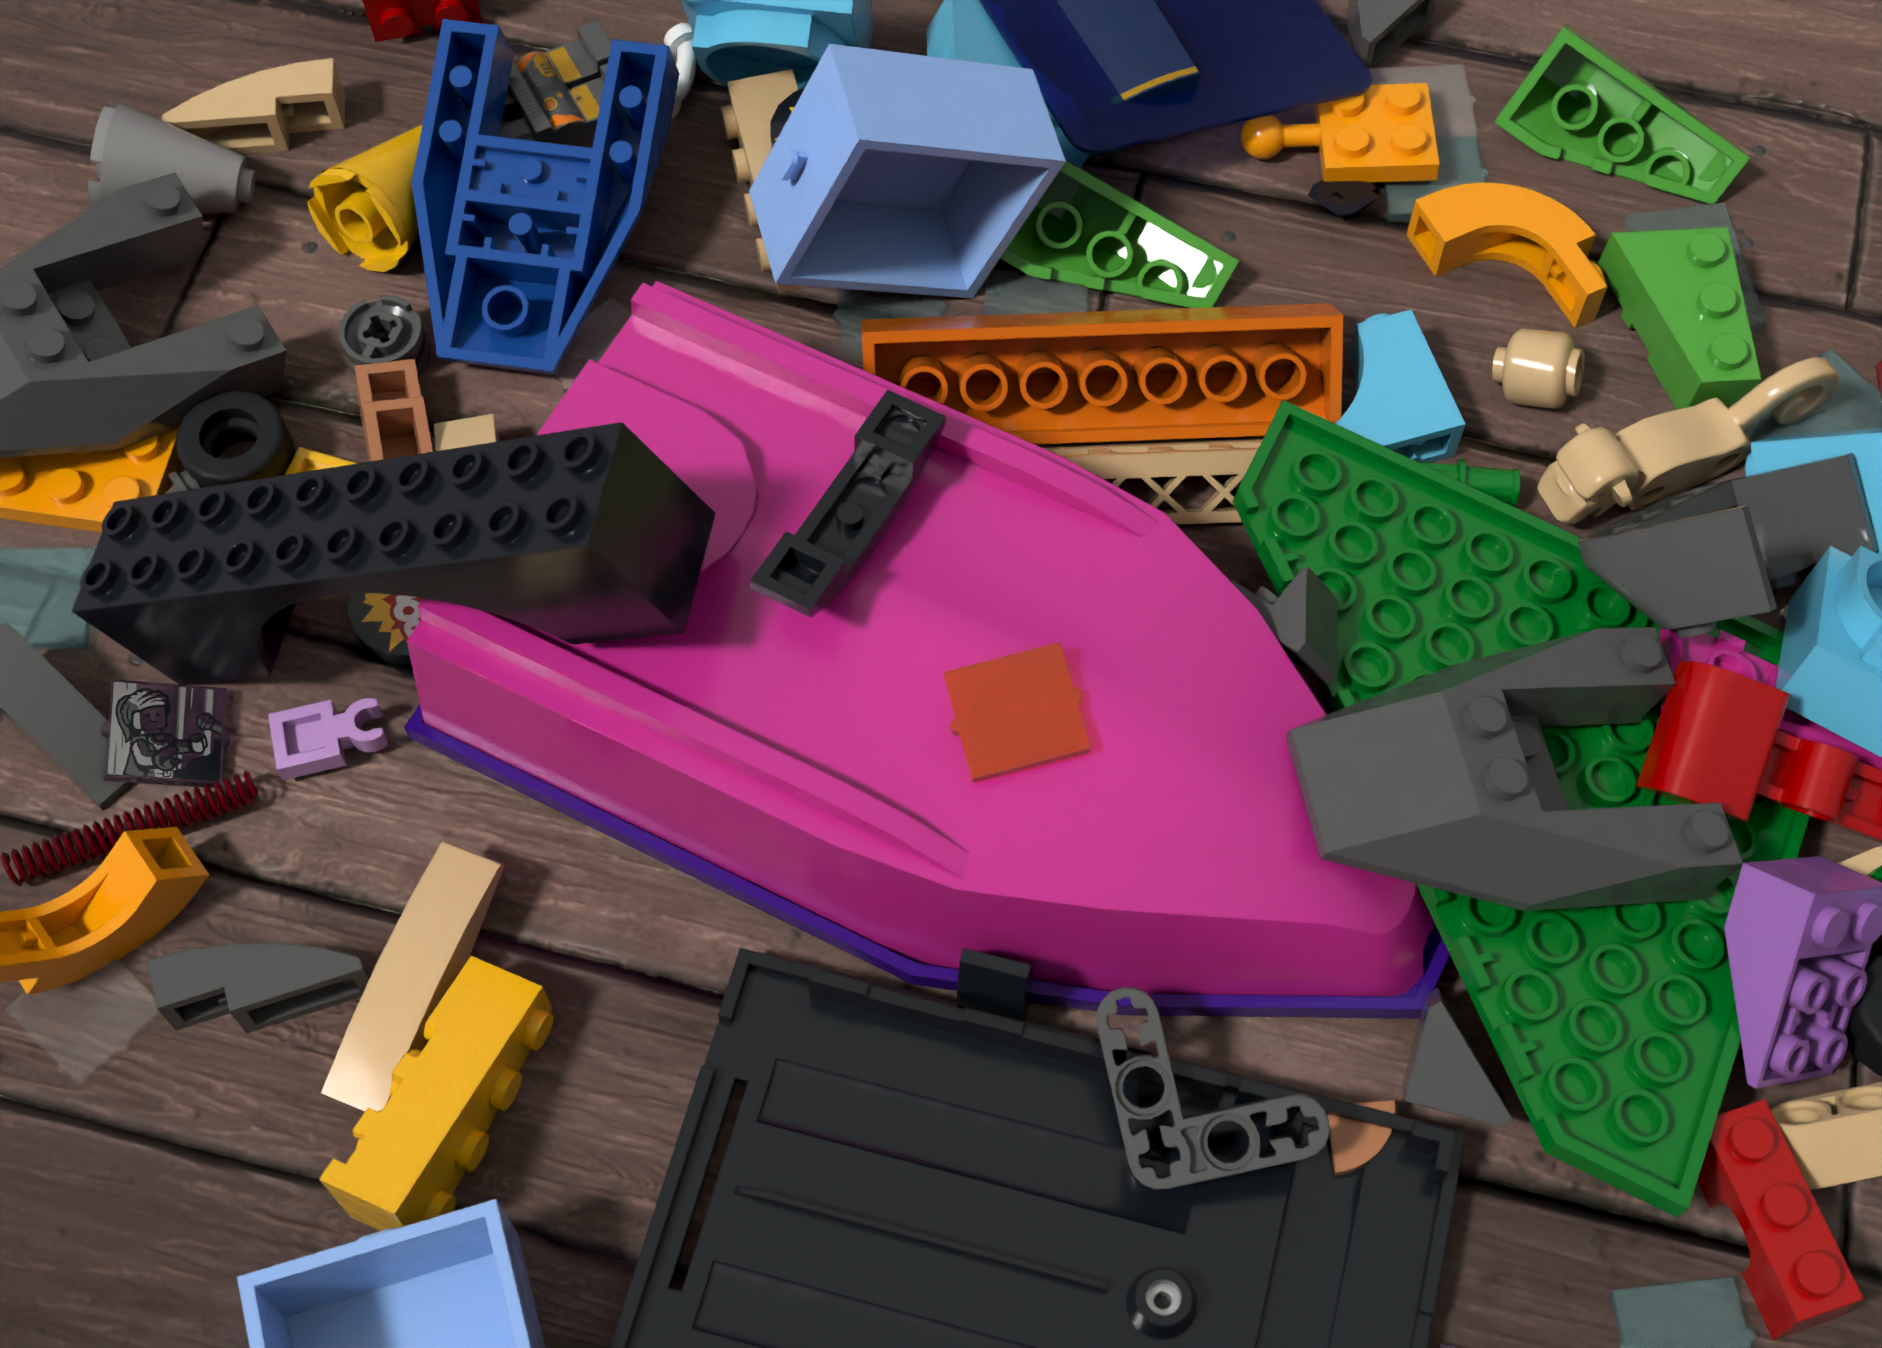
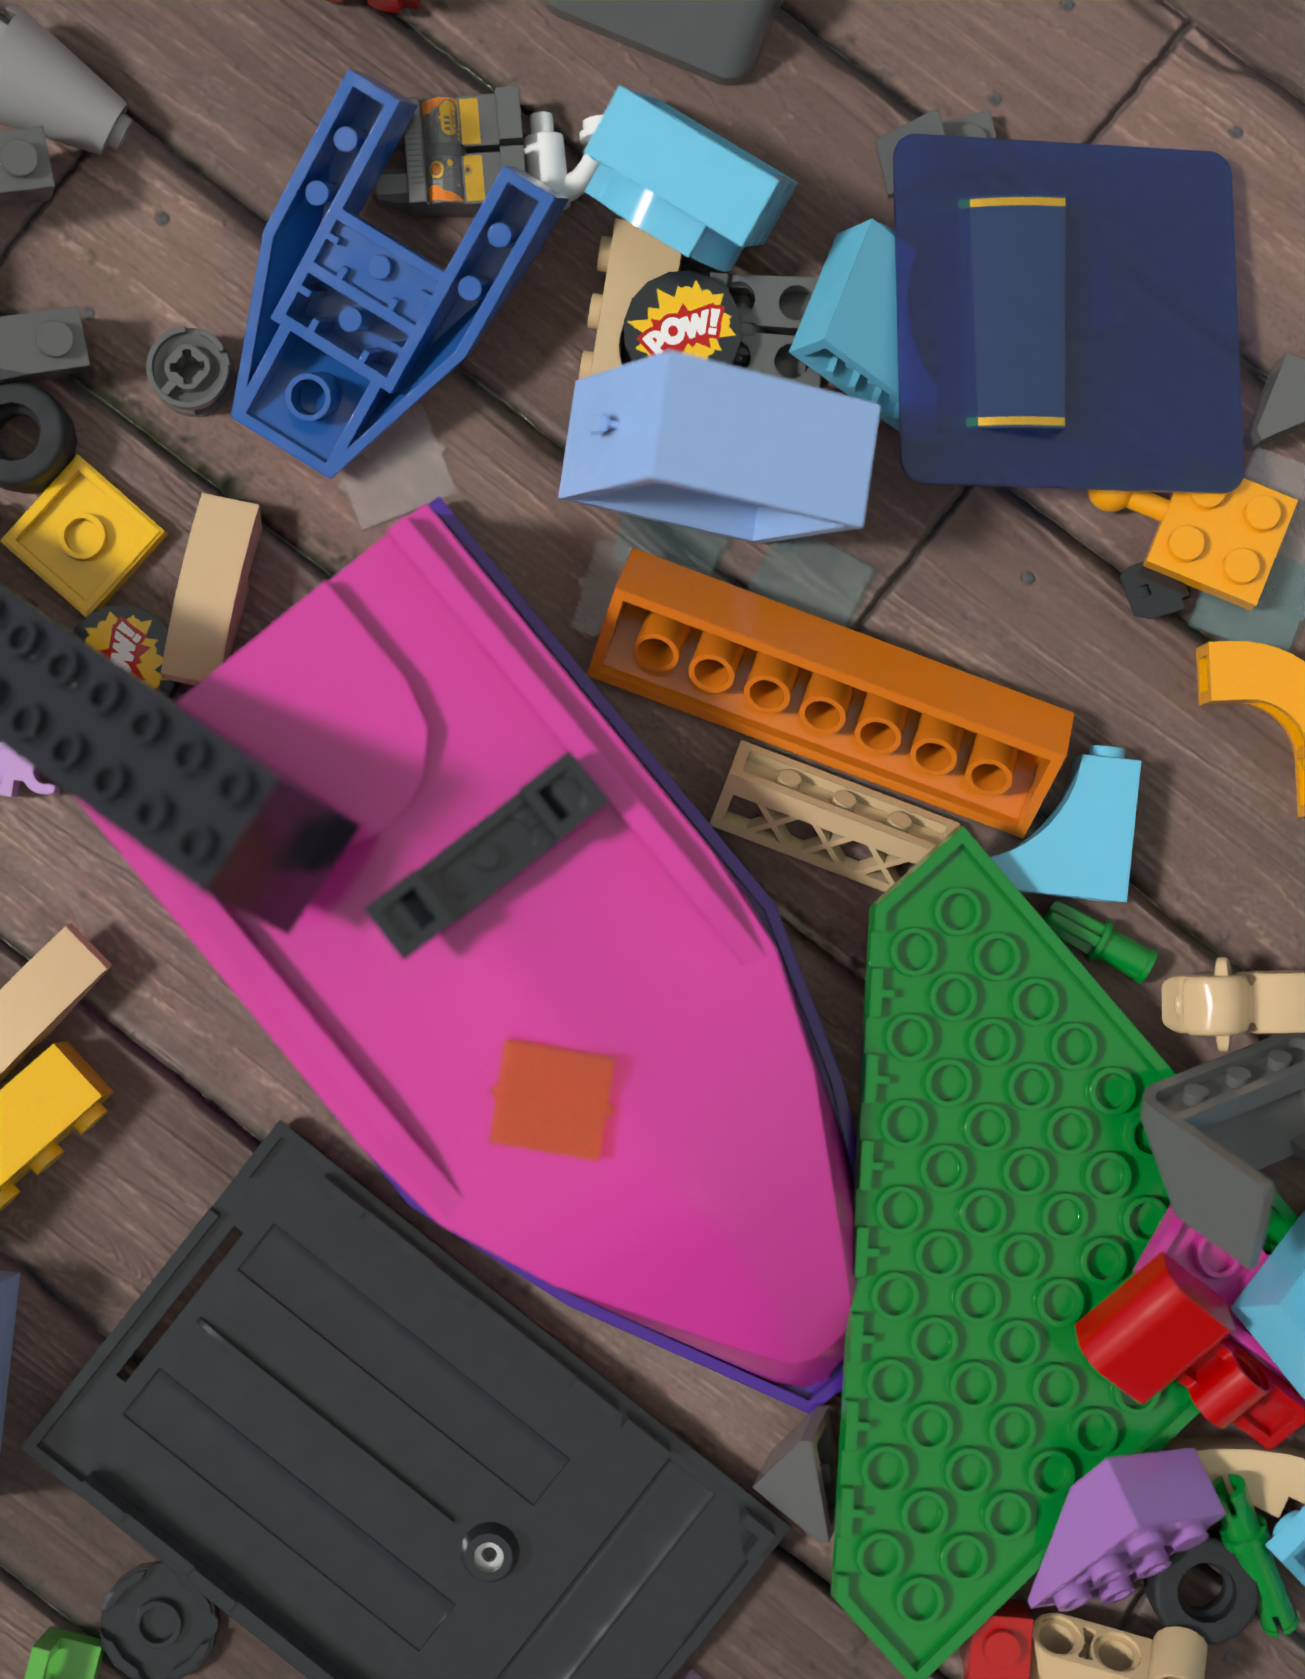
camera: 20 degrees right, 25 degrees up
(266, 106) = (162, 45): tan slope -> none
(370, 203) = (230, 207): yellow cone -> none
(392, 410) = (163, 495): nougat slope -> none
(994, 984) = (466, 1259): black slope -> none
(1112, 243) = (918, 556): bright green wedge -> none
(1192, 1131) = (565, 1443): dark grey beam -> none
(1302, 622) = (849, 1076): dark grey slope -> none
(1357, 1142) = (702, 1494): nougat tile -> none
(1462, 795) = (912, 1284): dark grey wedge -> none
(1539, 368) = (1232, 860): tan head -> none

